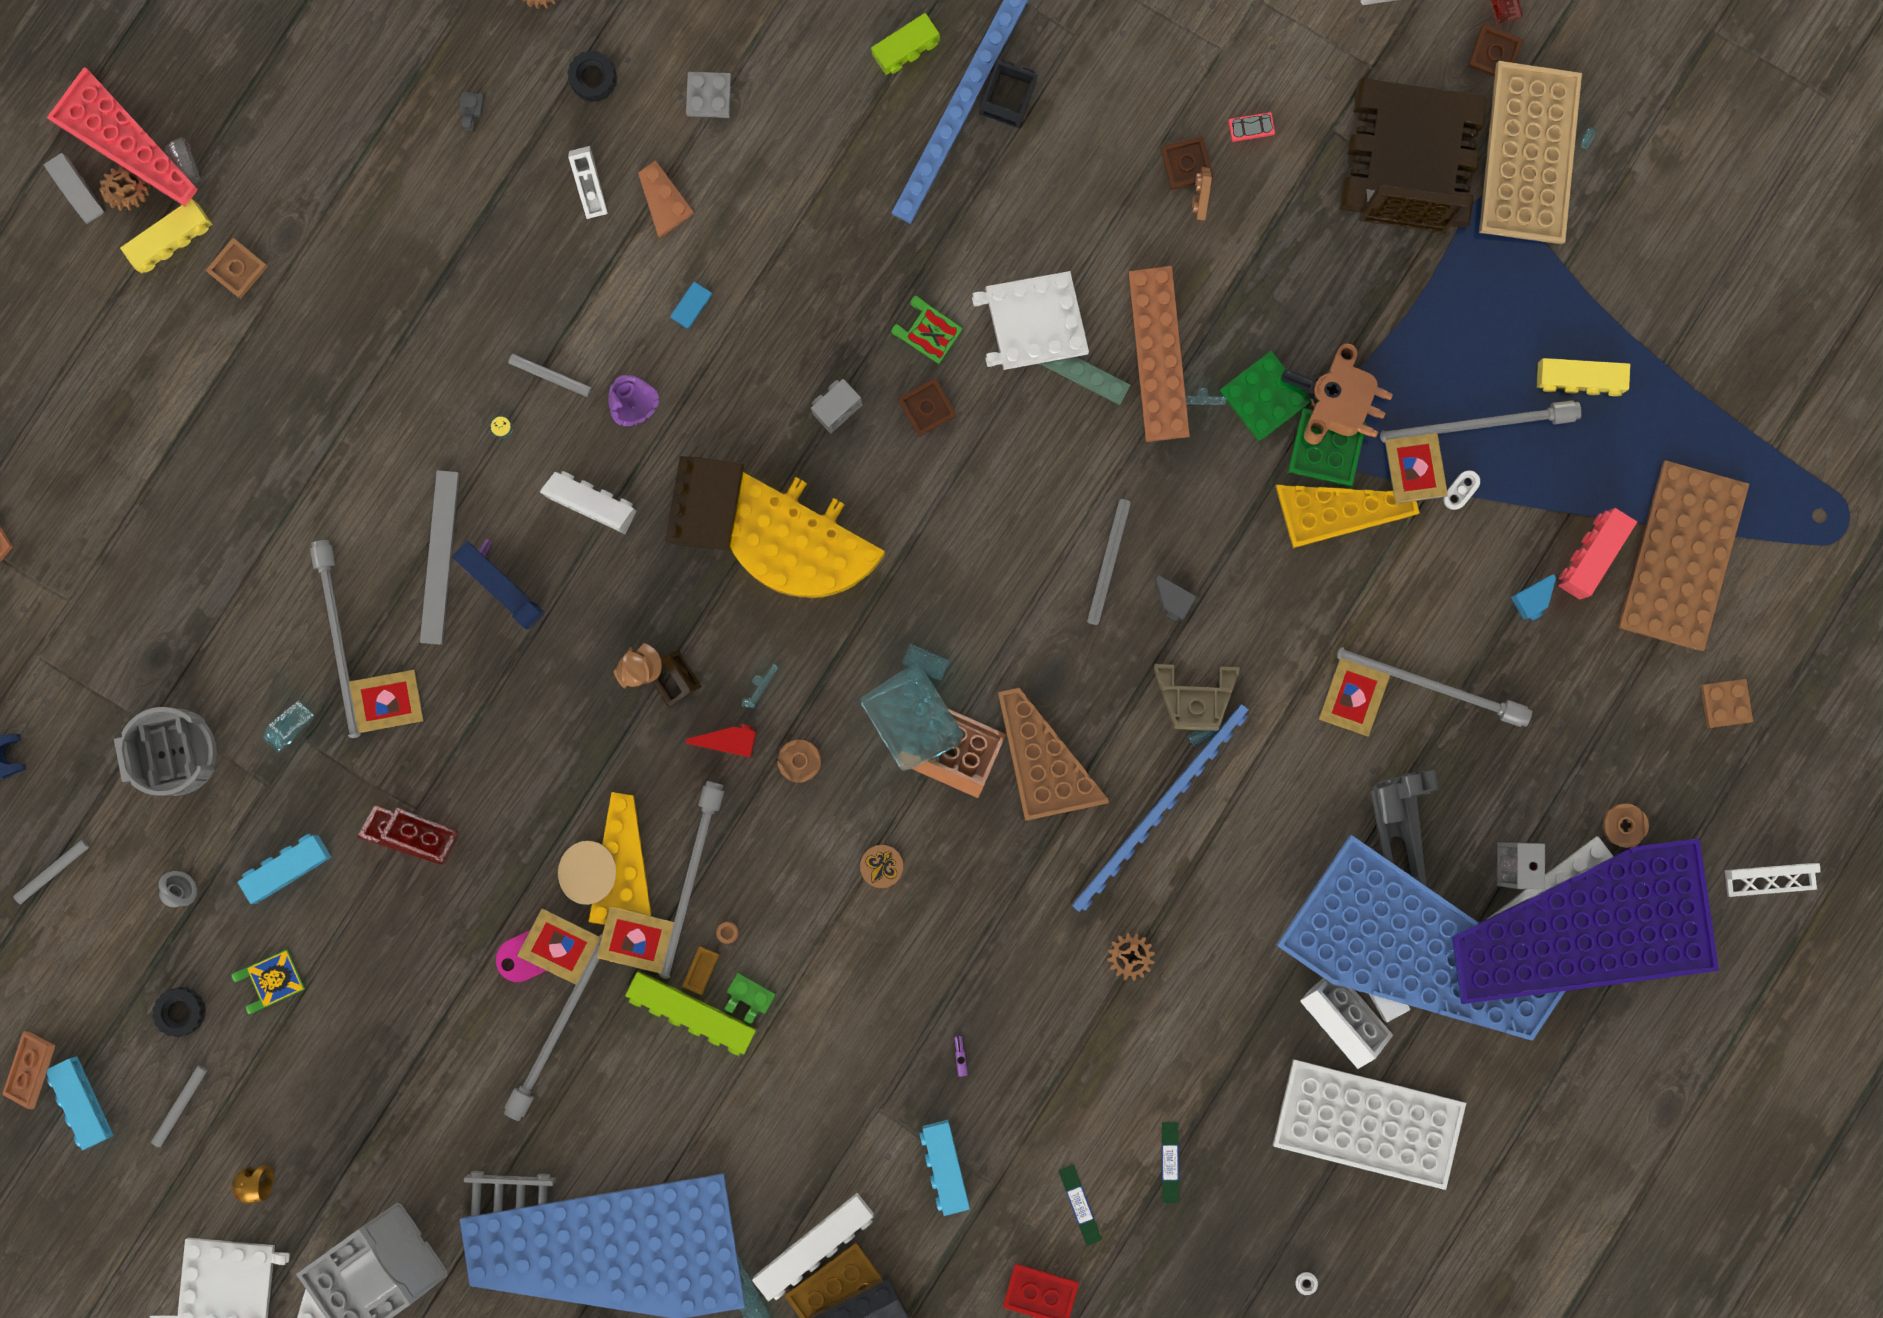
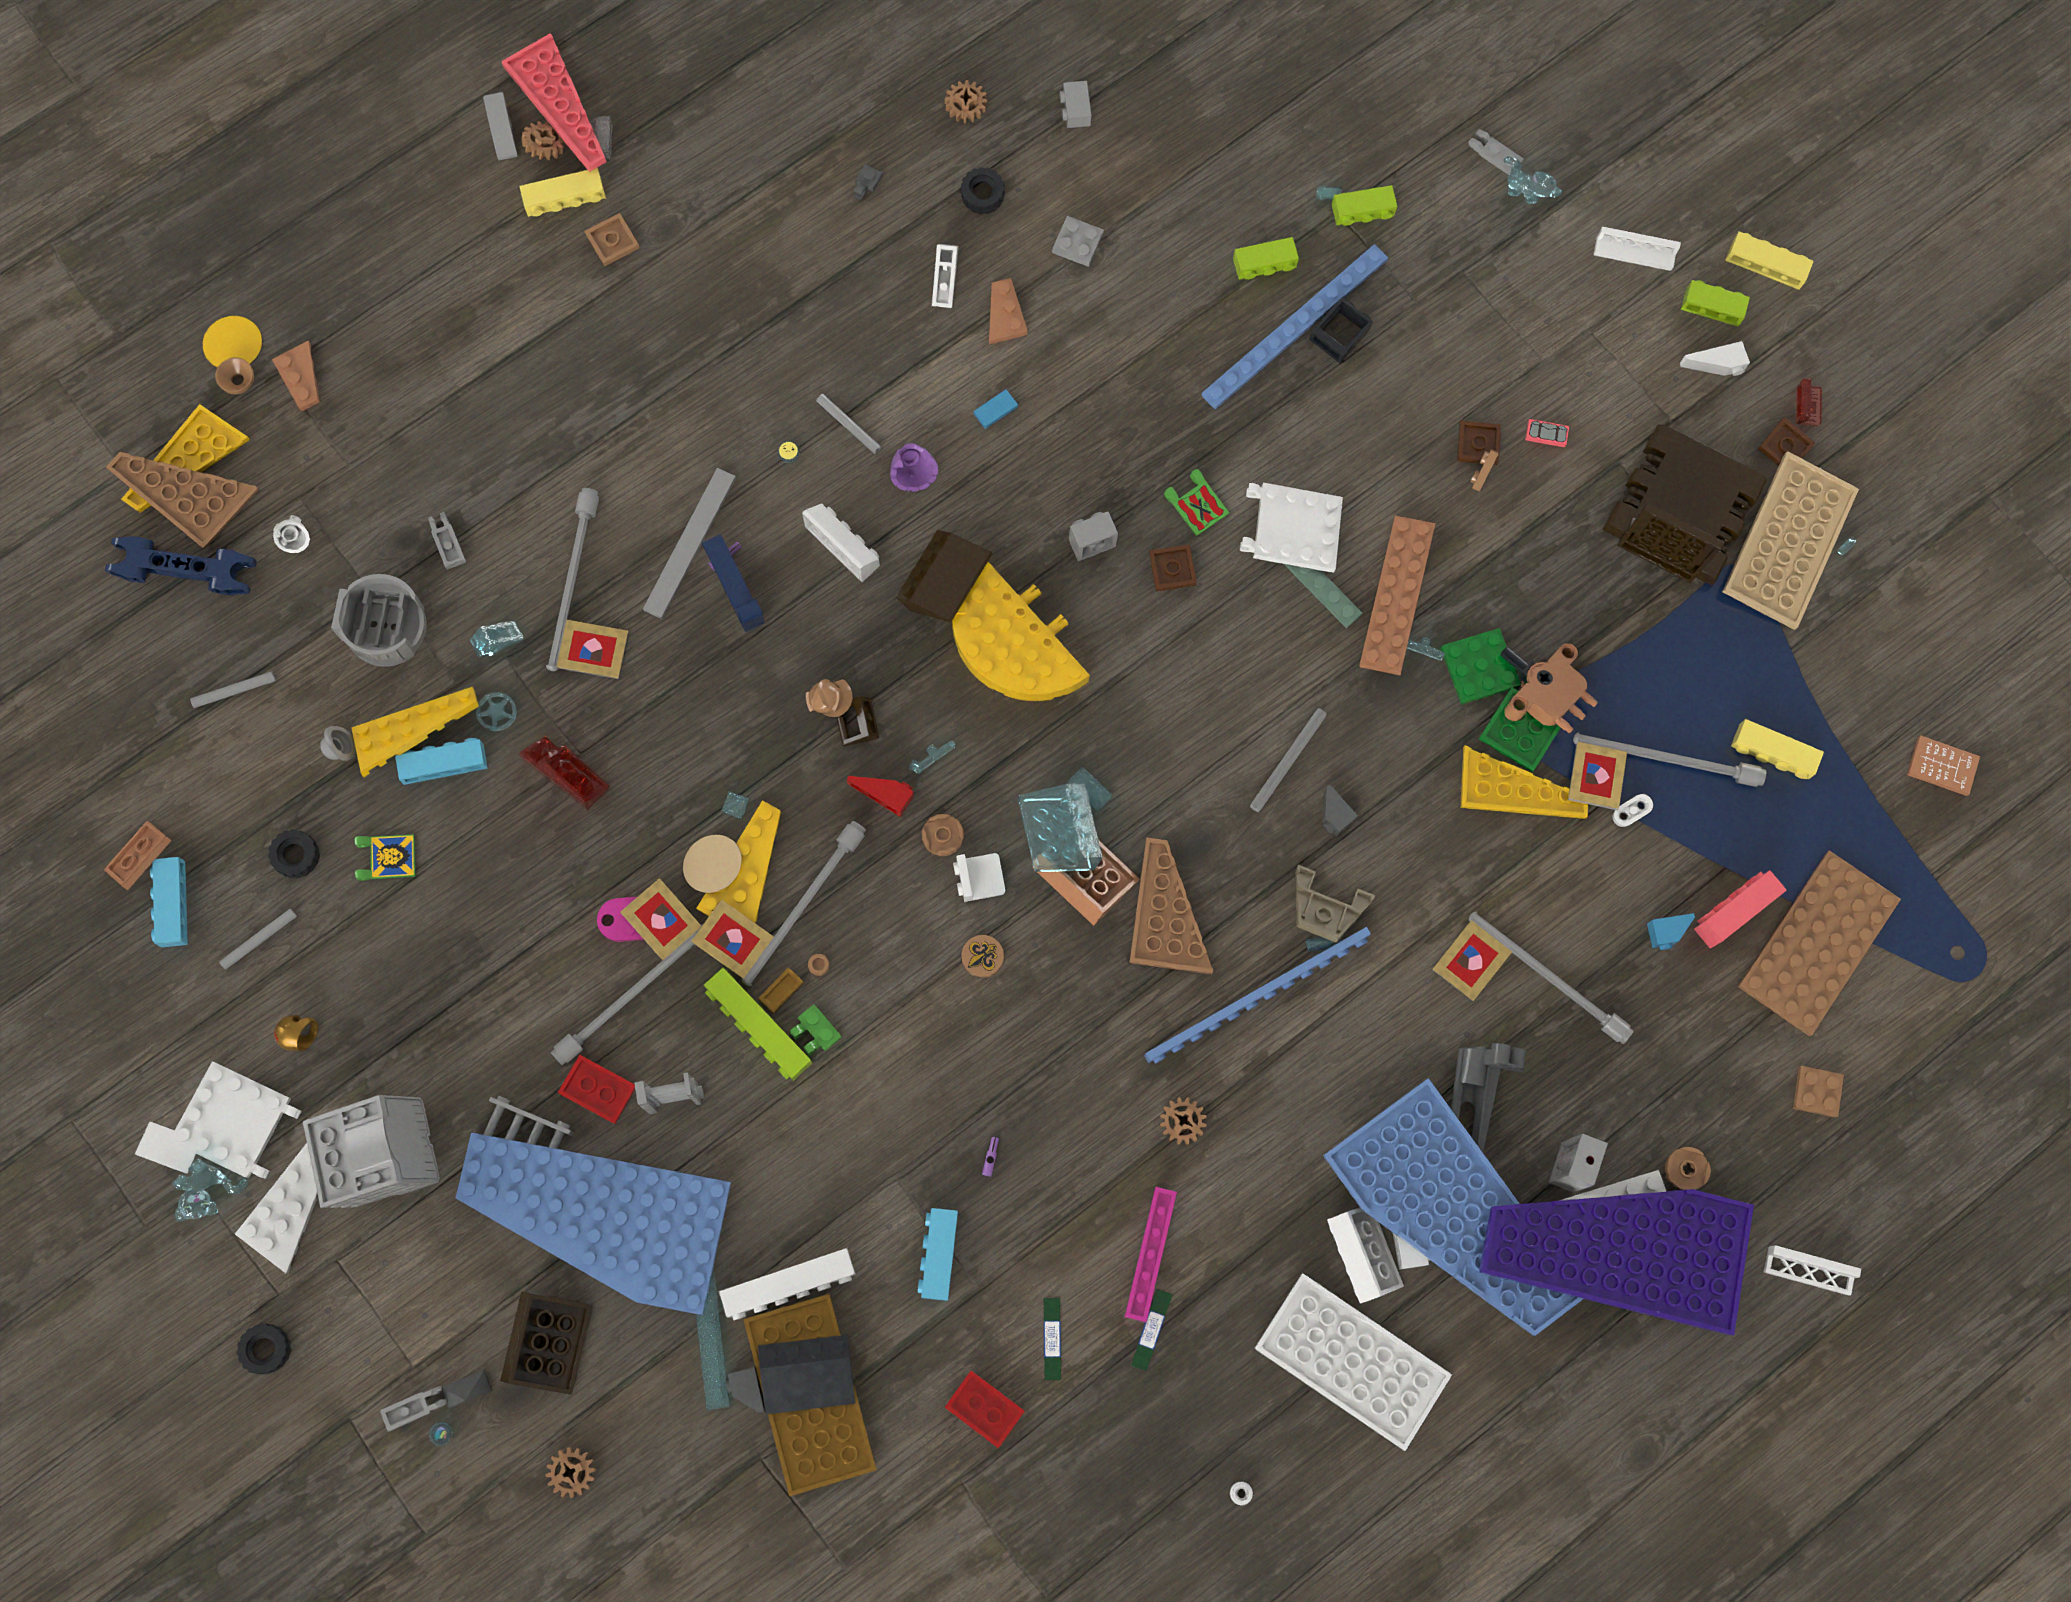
camera: 10 degrees right, 10 degrees down
(43, 696) = (291, 535): none -> white helmet
(199, 646) = (447, 542): none -> light grey hinge
(235, 851) = (402, 730): none -> yellow wing
(317, 798) = (496, 711): none -> clear light blue wheel
(562, 1131) = (597, 1089): none -> red plate
(587, 805) = (735, 805): none -> clear light blue tile
(617, 1125) = (652, 1098): none -> light grey fence
(850, 790) = (979, 876): none -> white bracket
(1144, 1094) = (1150, 1254): none -> dark pink plate
(1750, 331) = (1943, 765): none -> nougat tile

